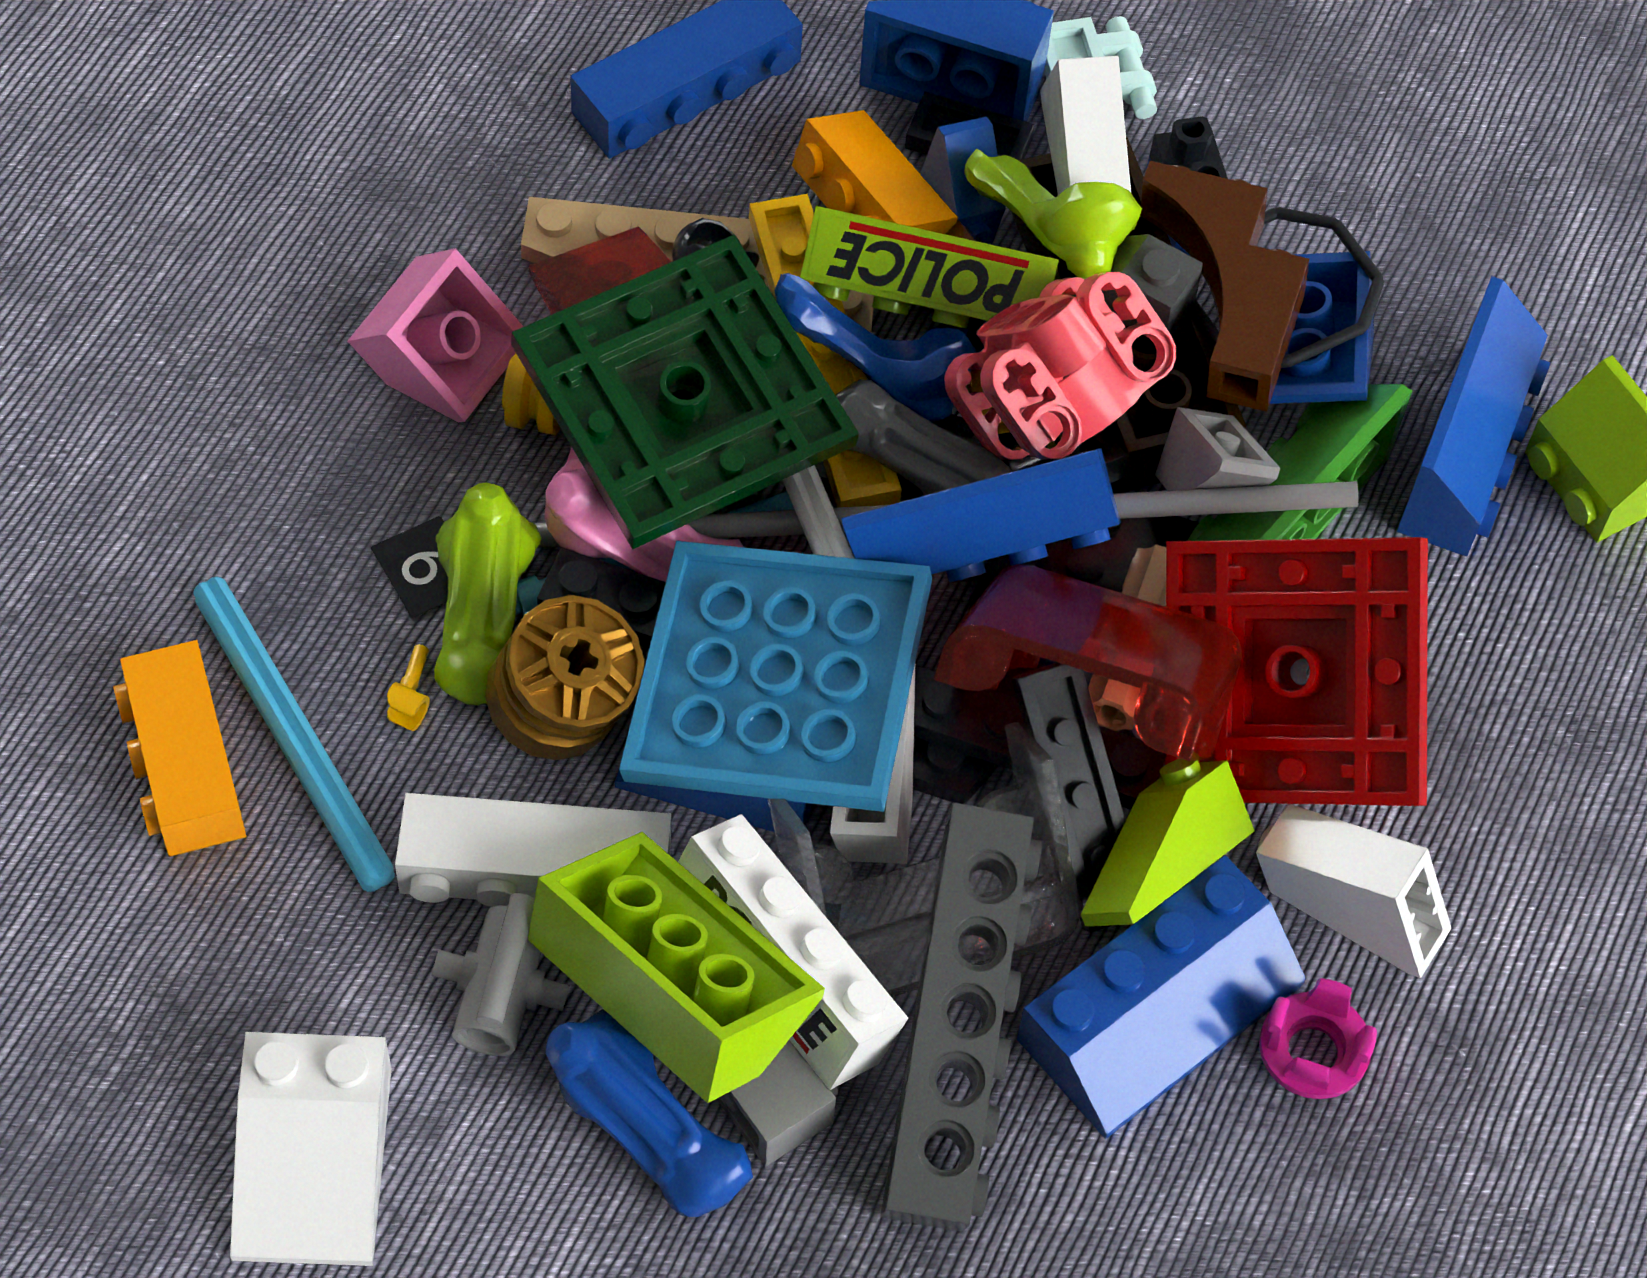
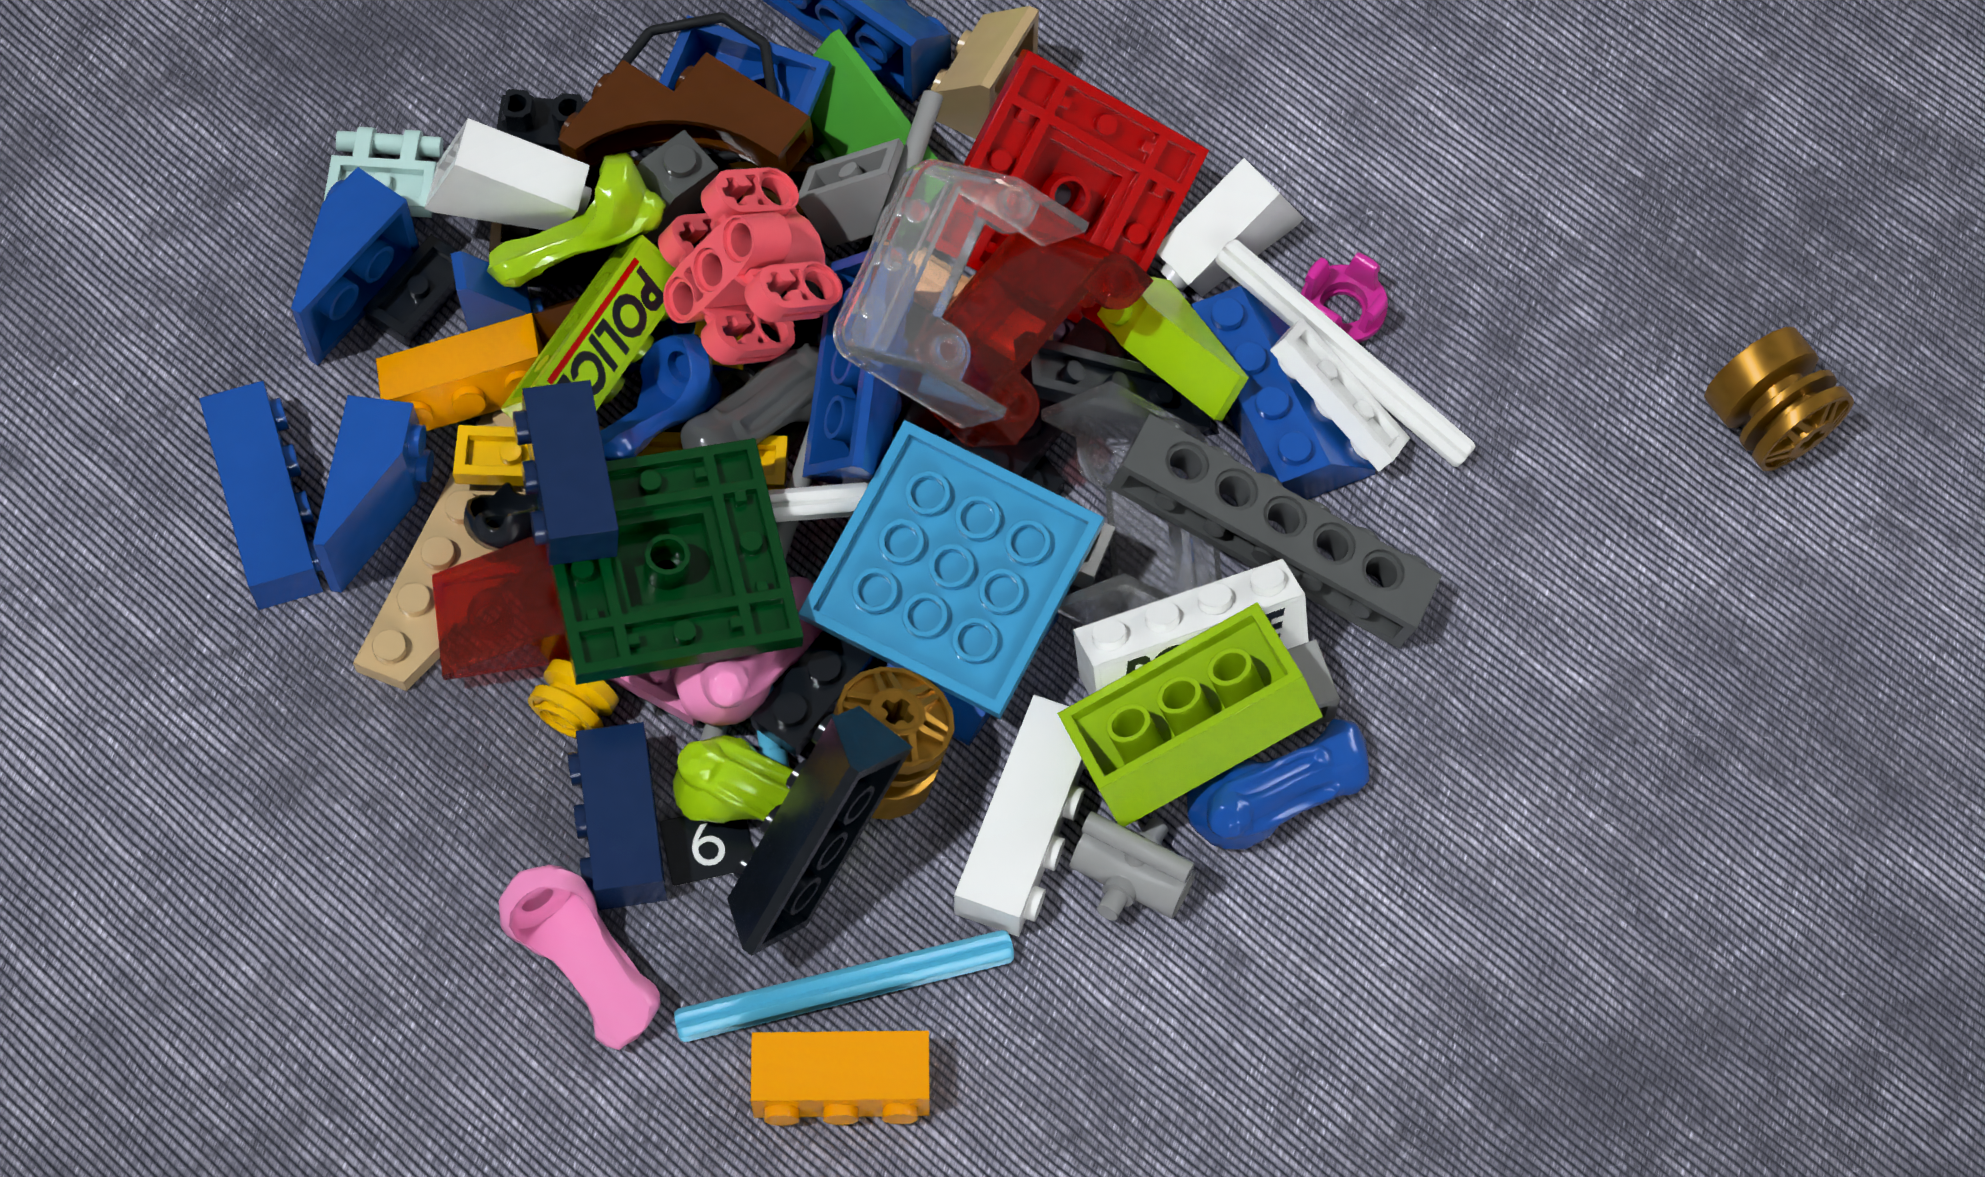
camera: 70 degrees left, 5 degrees up
(290, 444) = (559, 920): none -> bright pink hair
(309, 1148) = (1241, 1048): white slope -> none
(405, 703) = (849, 888): yellow hand -> none
(422, 468) = (618, 816): none -> dark blue brick
(424, 622) = (814, 827): none -> black slope
(439, 335) = (480, 771): bright pink slope -> none
(709, 139) = (370, 484): none -> blue slope
(733, 254) = (566, 473): none -> dark blue brick
(1079, 476) = (899, 297): none -> clear windscreen
(1172, 1052) = (1339, 395): none -> white plate
(1233, 1051) = (1377, 378): none -> white axle
(1471, 585) = (982, 67): none -> tan slope

